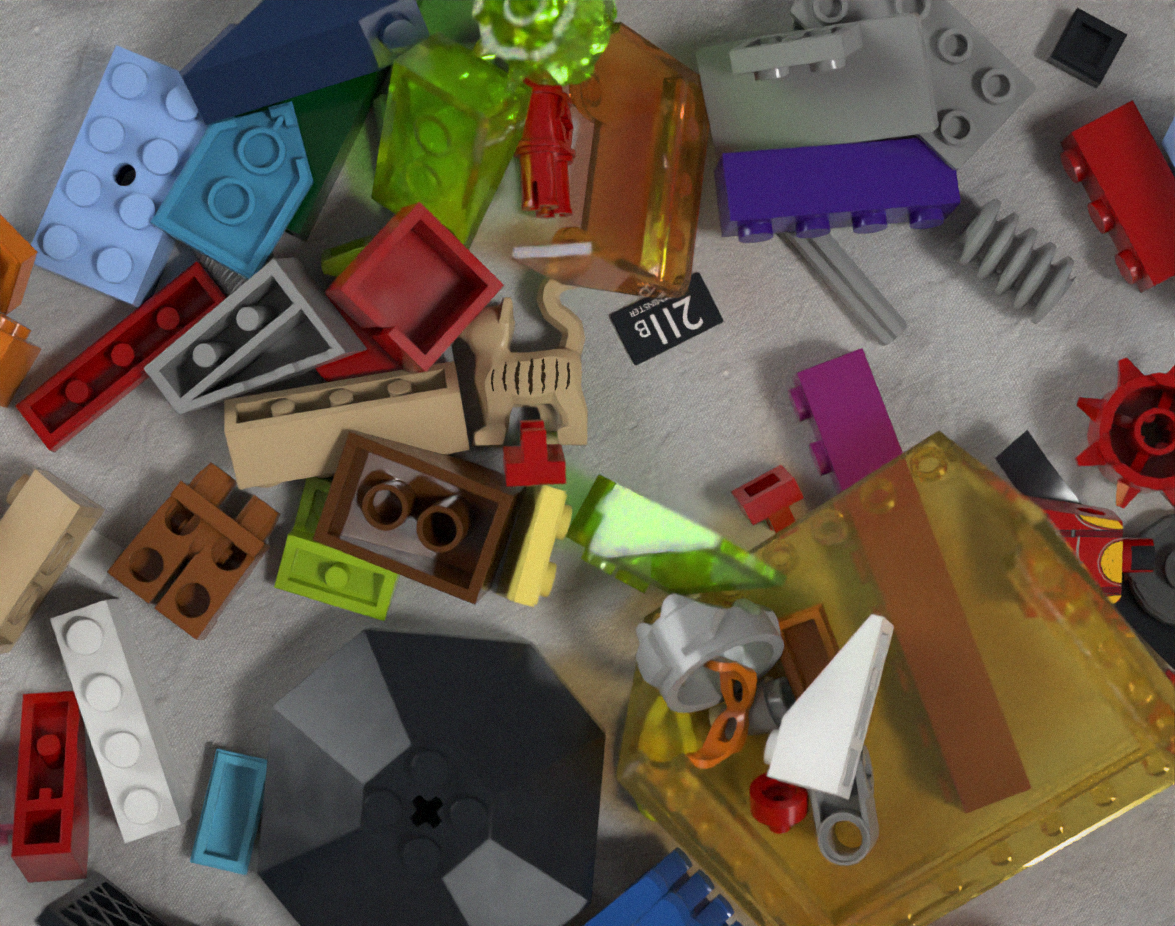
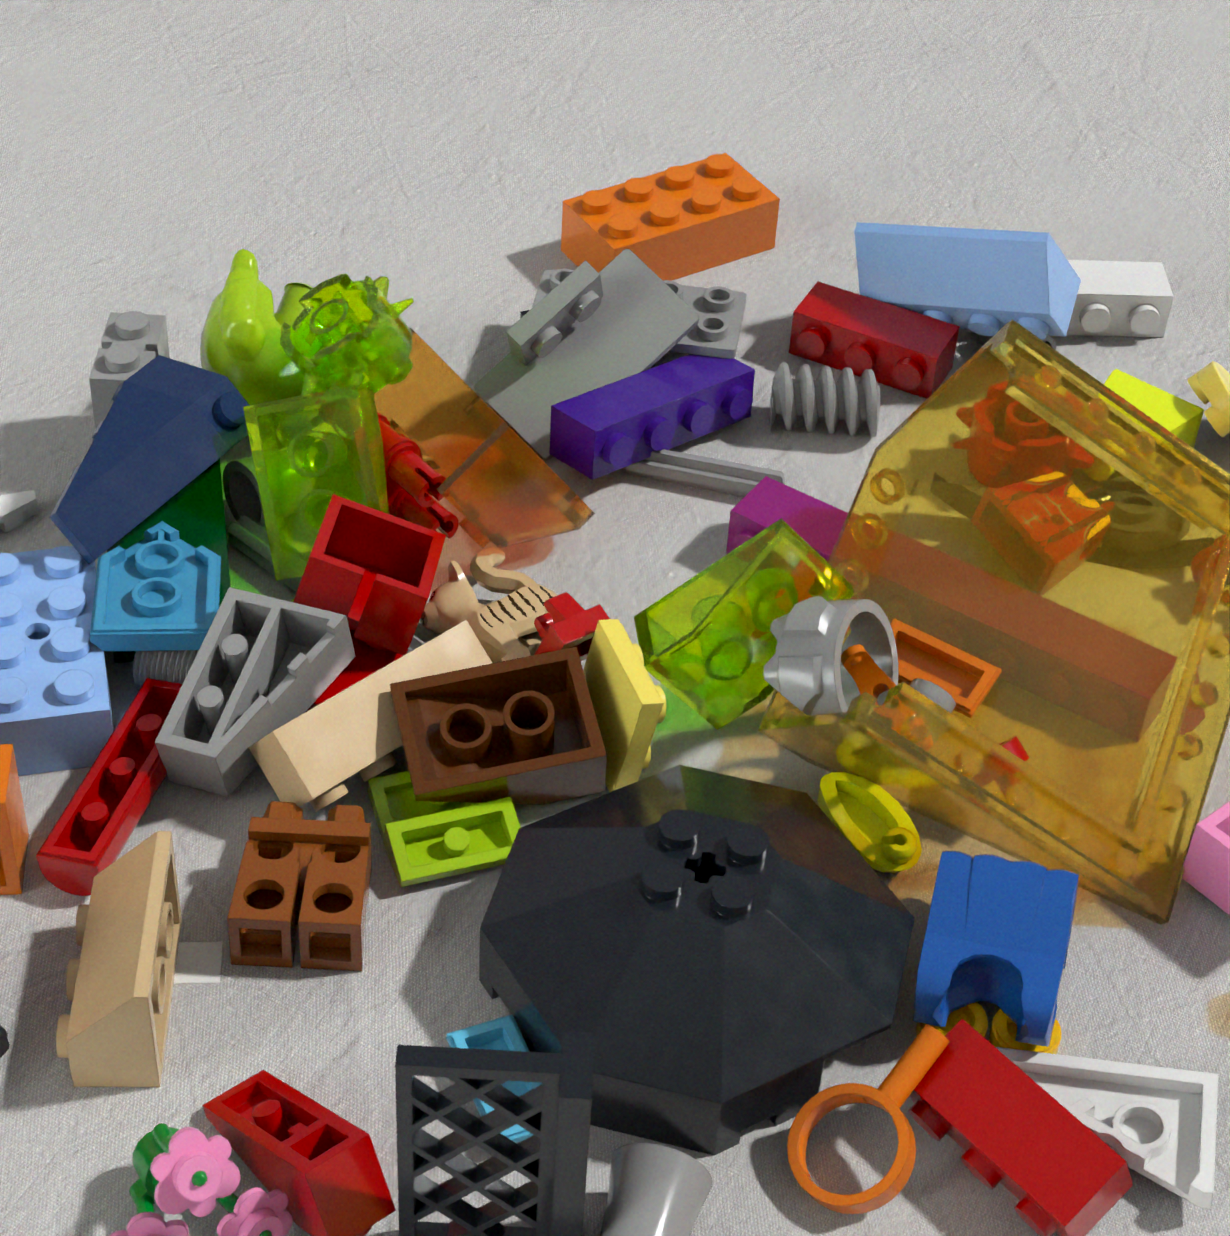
camera: 40 degrees left, 45 degrees down
(121, 719) = (308, 1035): white brick -> none
(663, 323) = (591, 563): black sticker -> none
(829, 722) = (987, 664): white slope -> none
(858, 809) = (1050, 732): light grey piece -> none
(1086, 48) = (763, 296): black tile -> none

